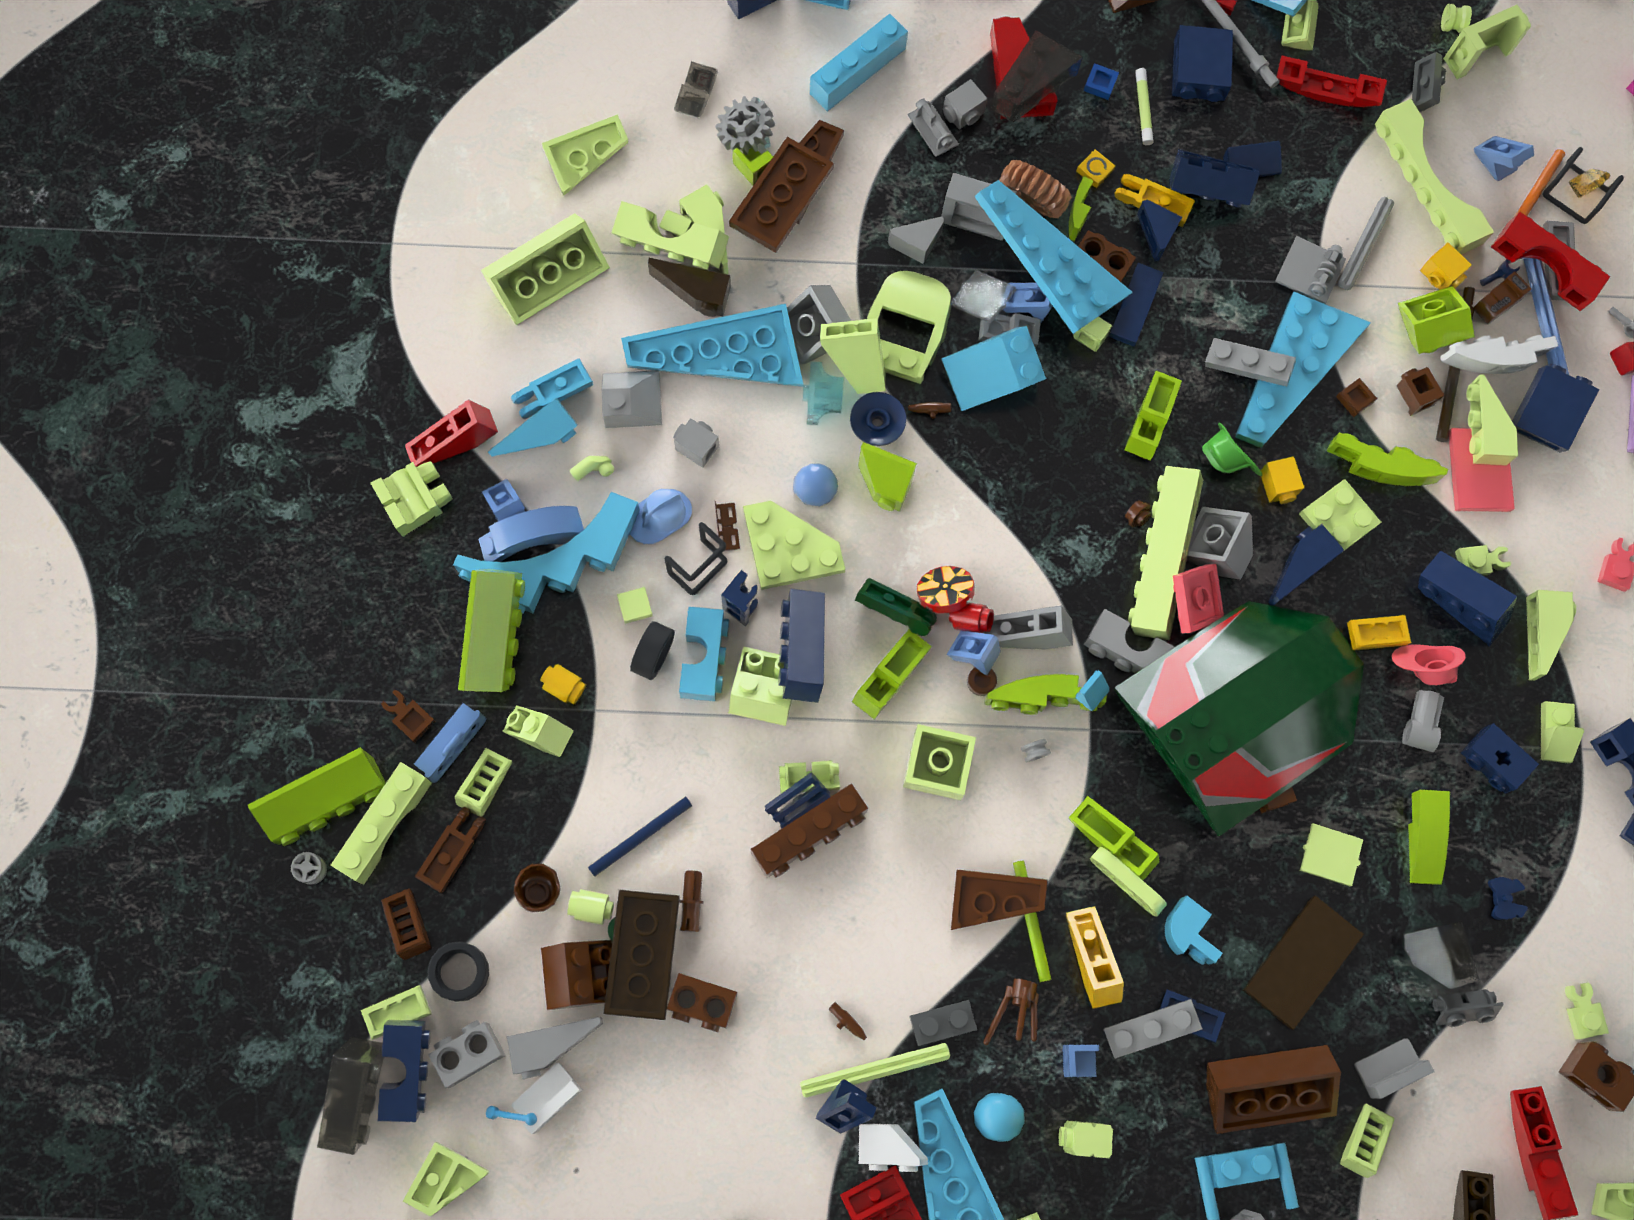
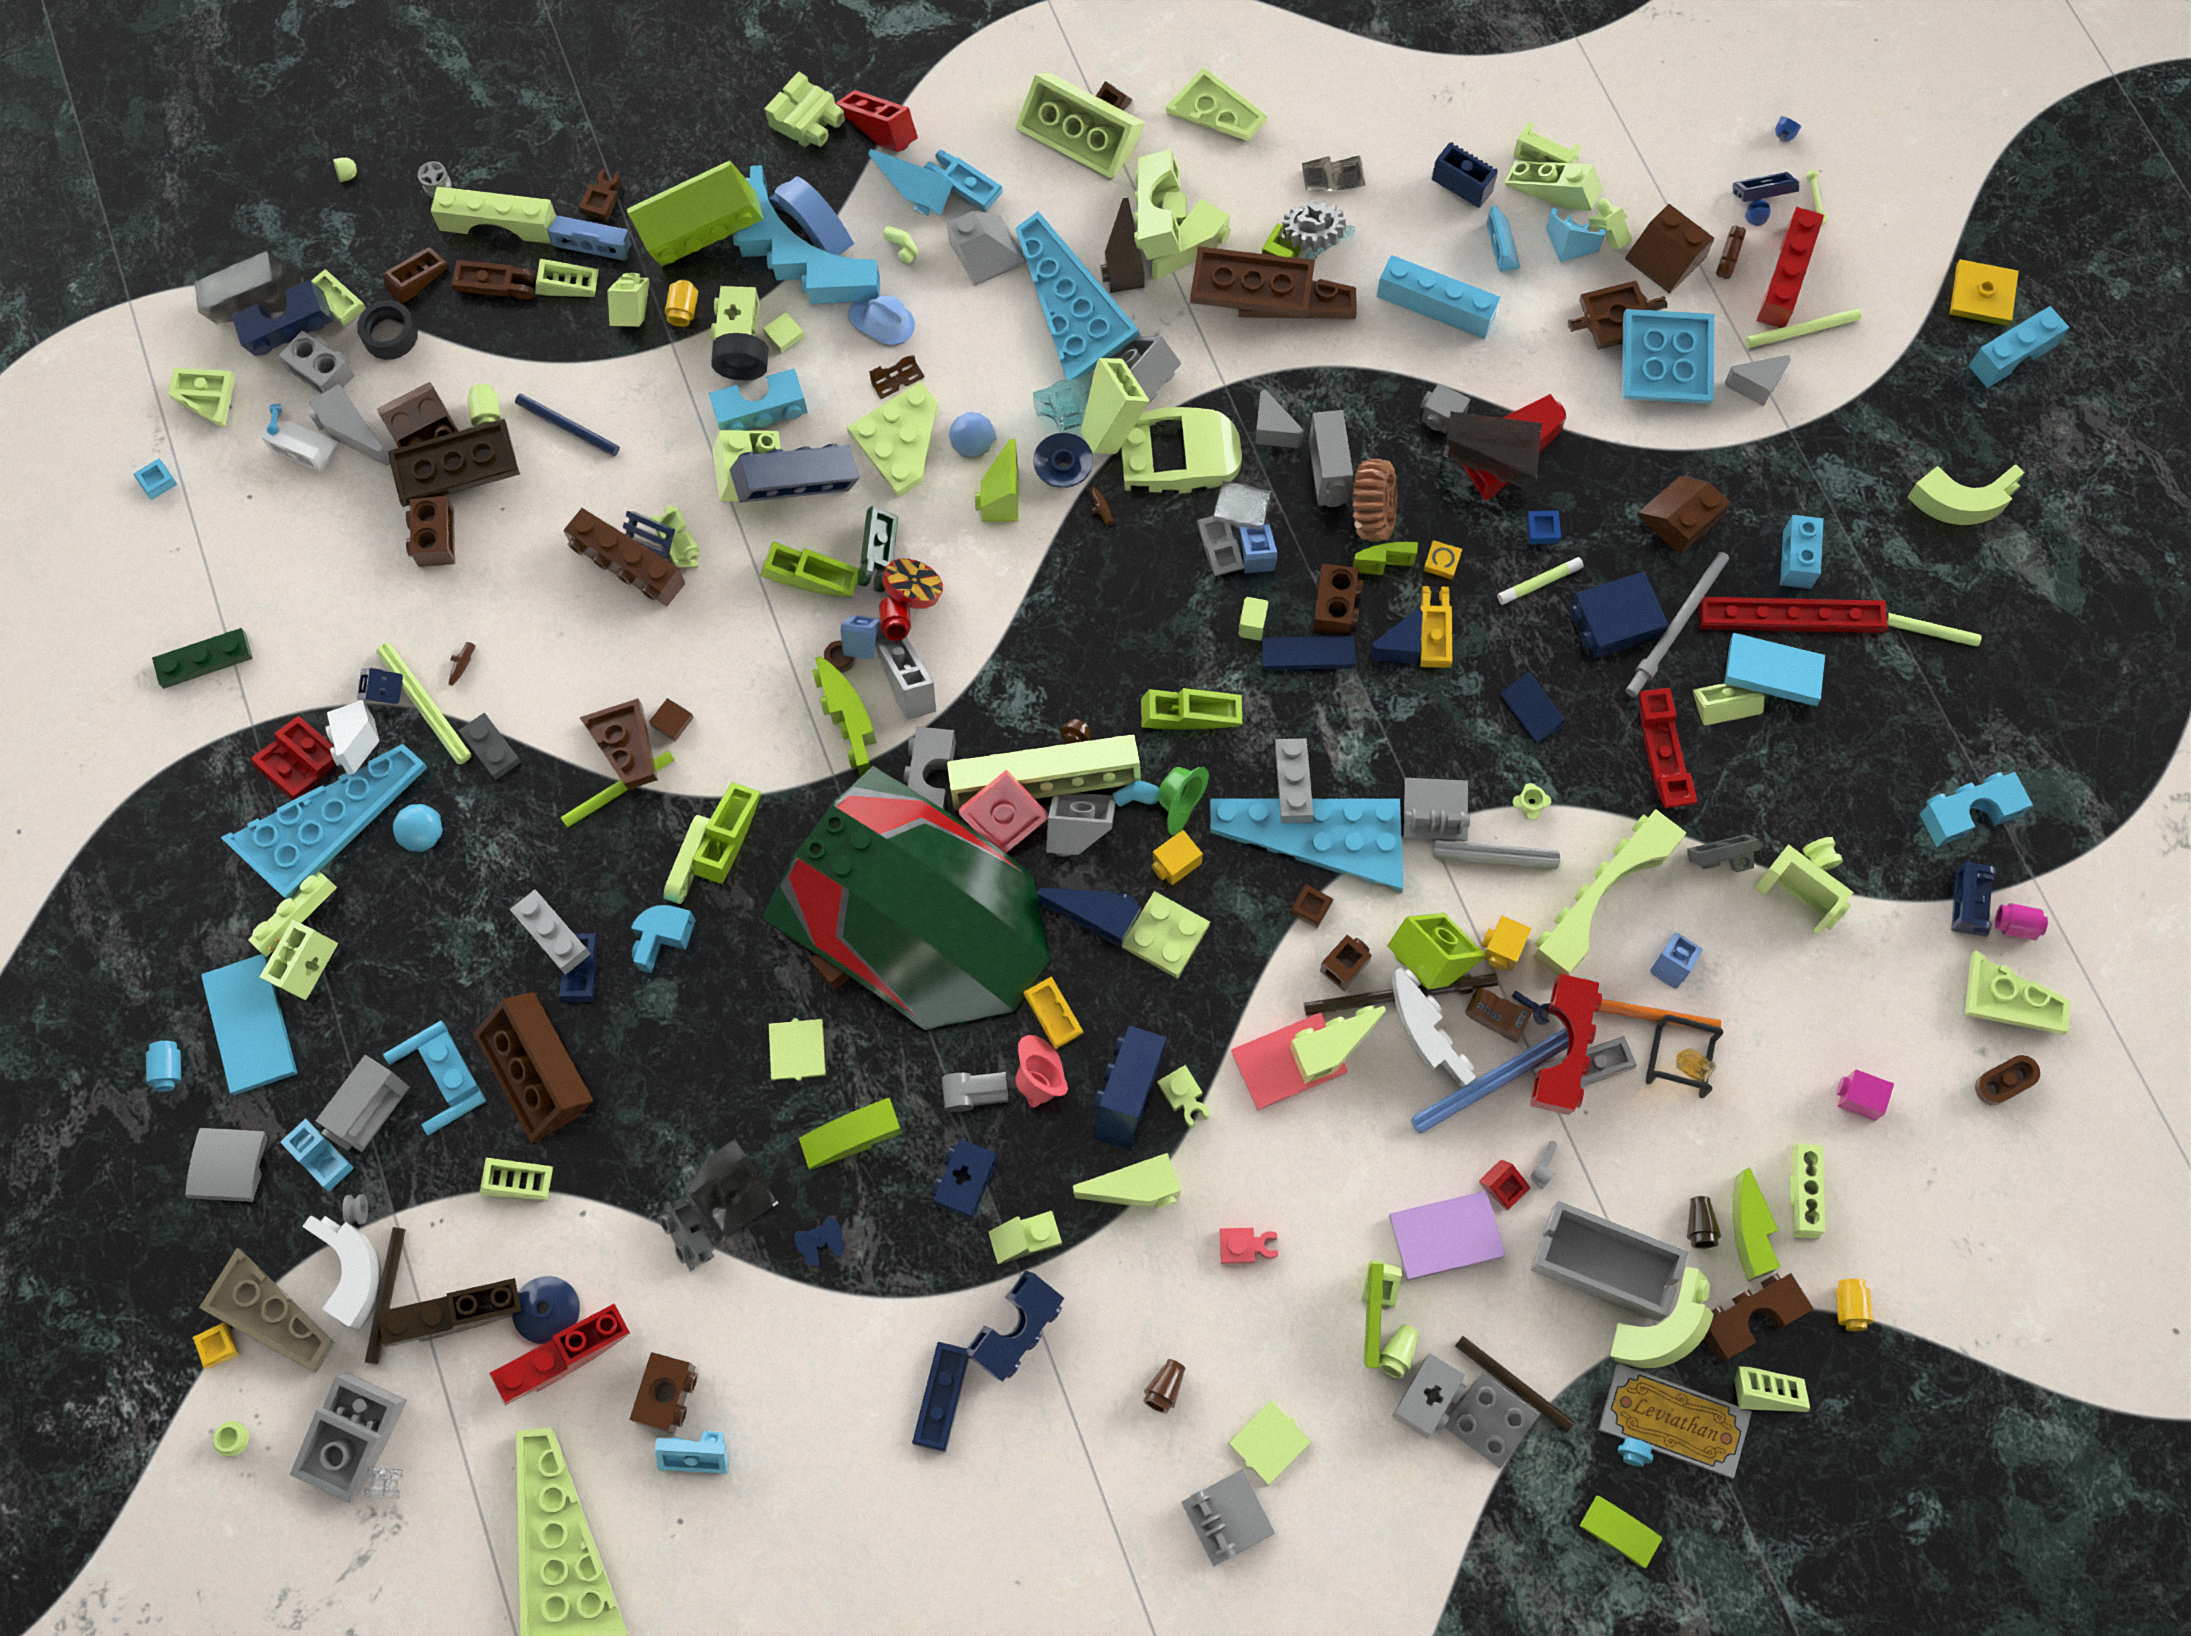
camera: 75 degrees right, 5 degrees down
(249, 954) = (345, 169): none -> yellowish green hinge
(318, 797) = (495, 153): lime slope -> none
(503, 500) = (833, 185): medium blue slope -> none
(528, 230) = (1114, 96): none -> reddish brown slope
(537, 888) = (483, 356): reddish brown hair -> none
(596, 628) = (736, 311): none -> yellowish green brick
(691, 901) = (520, 488): reddish brown axle -> none
(696, 441) = (965, 316): light grey brick -> none
(716, 553) = (869, 342): black piece -> none
(737, 599) = (820, 404): dark blue hinge -> none
(932, 128) = (1406, 392): light grey hinge -> none
(939, 762) = (734, 641): yellowish green brick -> none
(983, 849) = (671, 719): none -> reddish brown tile
(994, 368) = (1165, 540): medium azure slope -> none
(1023, 995) = (539, 803): reddish brown plant -> none
(1035, 750) = (786, 727): light grey bush -> none
(1062, 270) = (1291, 553): medium azure wing -> none
(1079, 1060) = (495, 876): medium blue panel -> none
(1086, 1139) = (417, 902): yellowish green brick -> none
(1093, 691) = (859, 744): medium azure slope -> none
(1095, 958) = (599, 854): yellow slope -> none
(1211, 484) = (1137, 791): none -> medium azure arm
(1213, 178) = (1481, 664): dark blue wedge -> none
(1303, 962) = (673, 1057): dark brown tile -> none
(1334, 191) = (1533, 792): none -> yellowish green plate
(1392, 1069) = (597, 1179): light grey panel -> none
(1395, 468) = (1247, 967): lime slope -> none
(1476, 1147) = (562, 1311): none -> dark blue dish
(1554, 407) = (1391, 1106): dark blue brick -> none
(1585, 1018) = (724, 1365): yellowish green plate -> none

